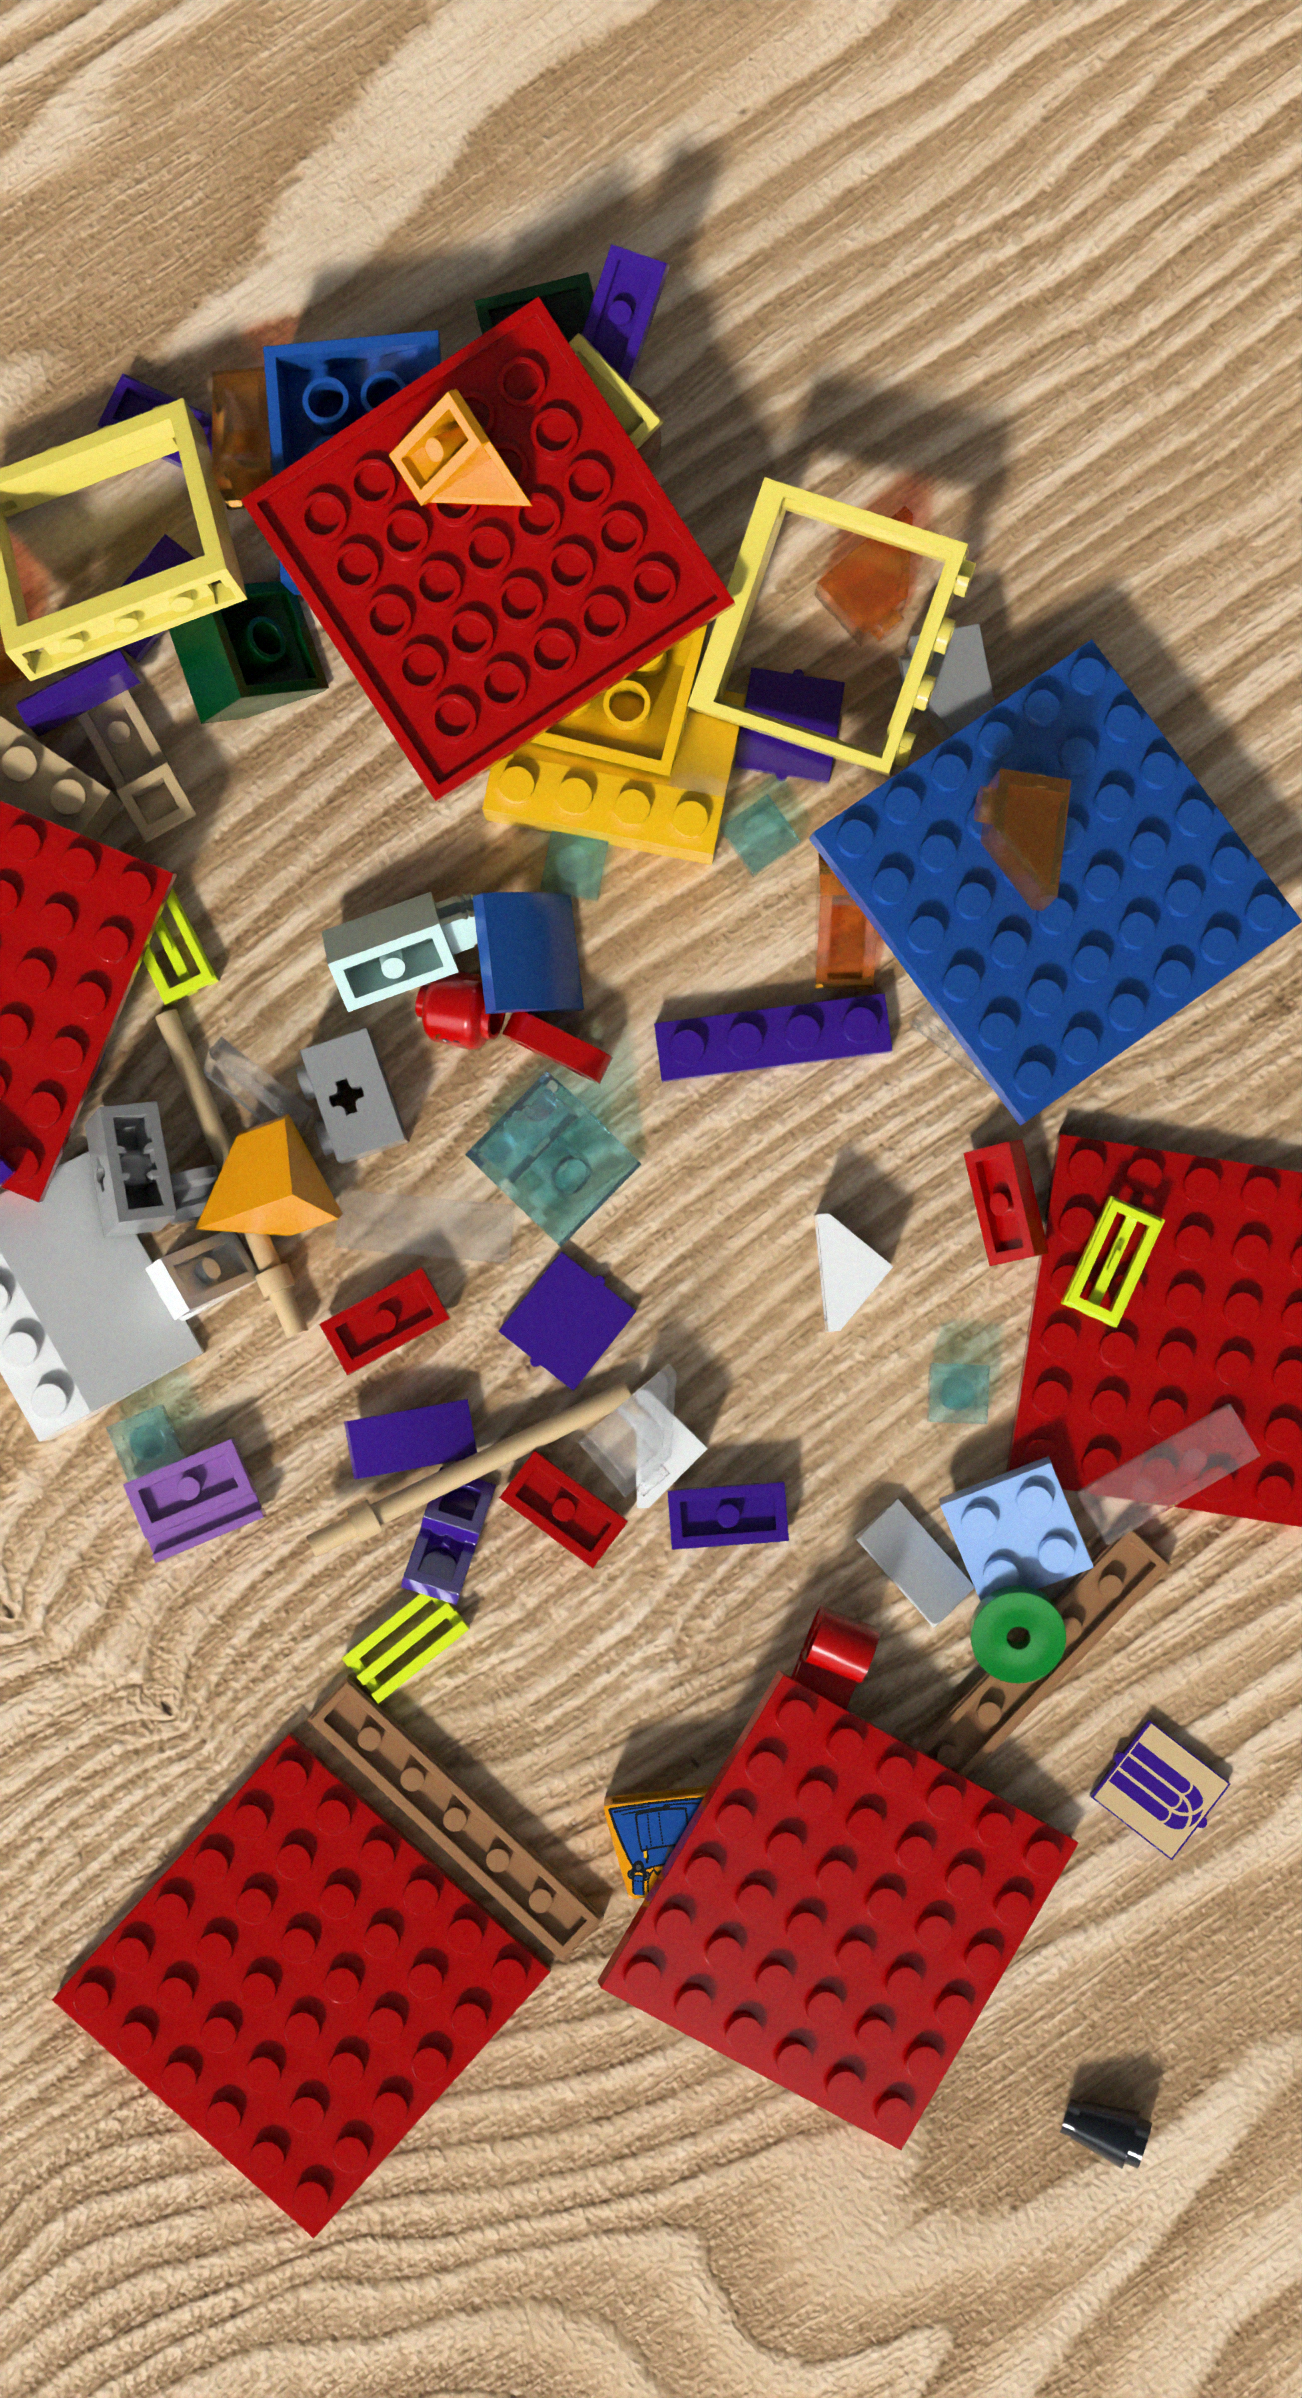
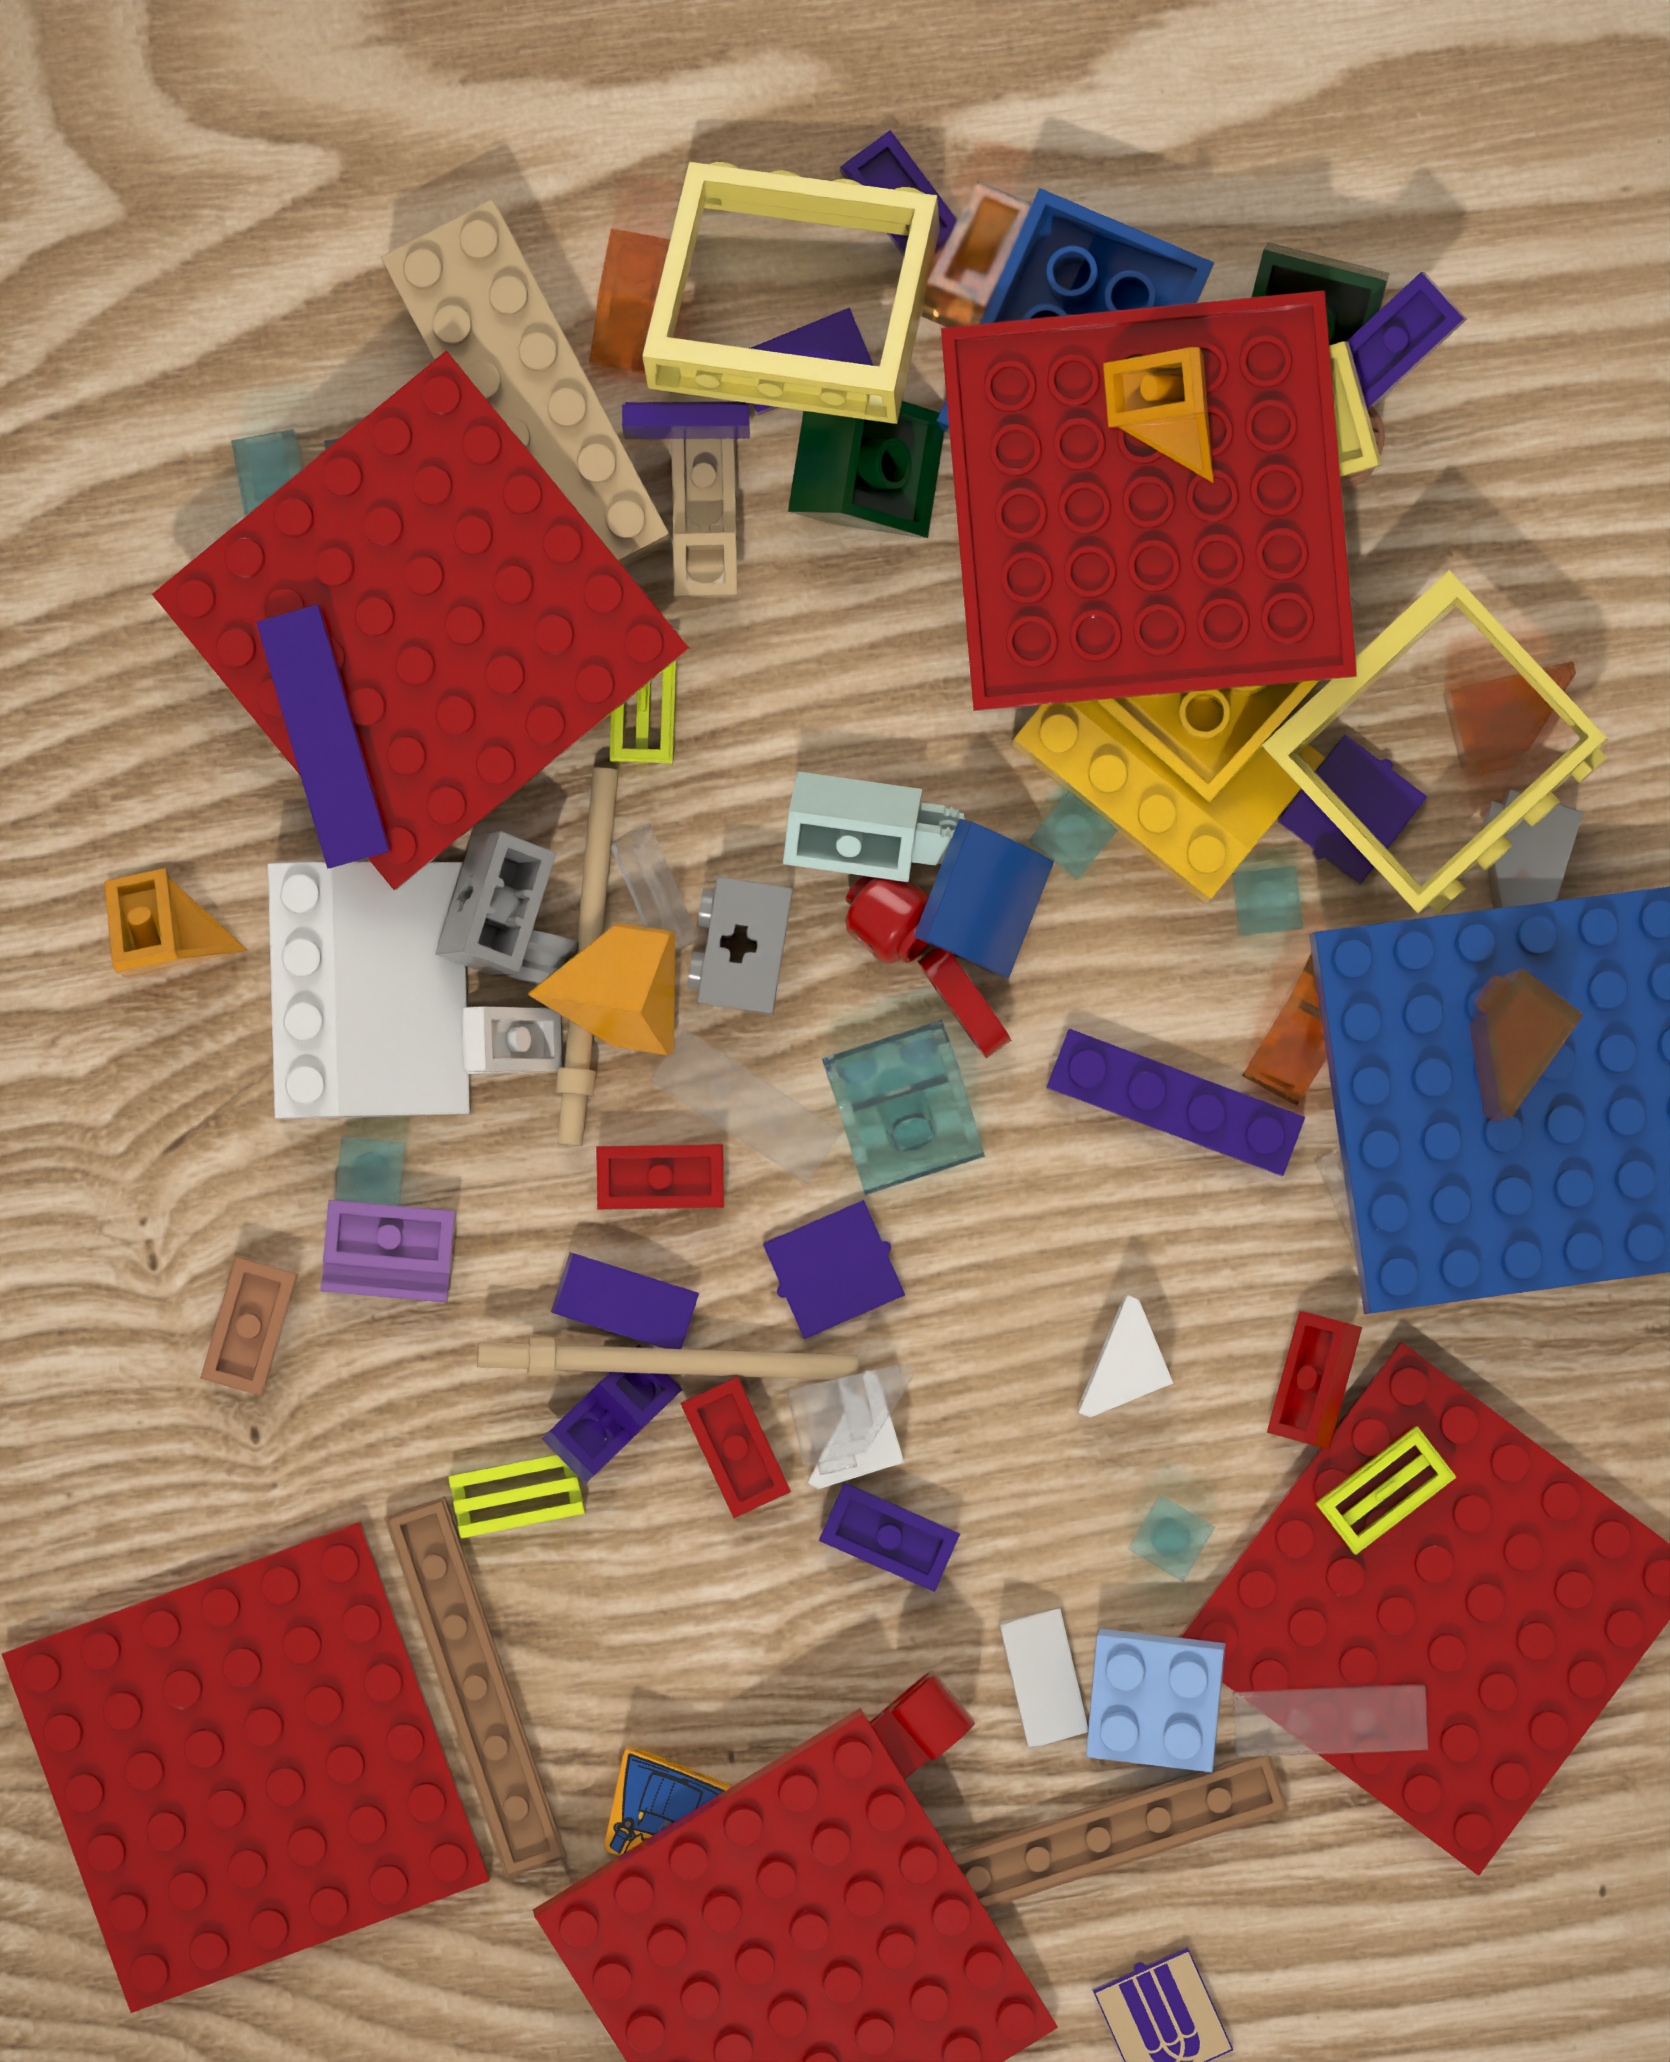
camera: 20 degrees right, 0 degrees up
(113, 1622) = (249, 1326): none -> nougat plate
(1020, 1660) = (1109, 1768): green piece -> none

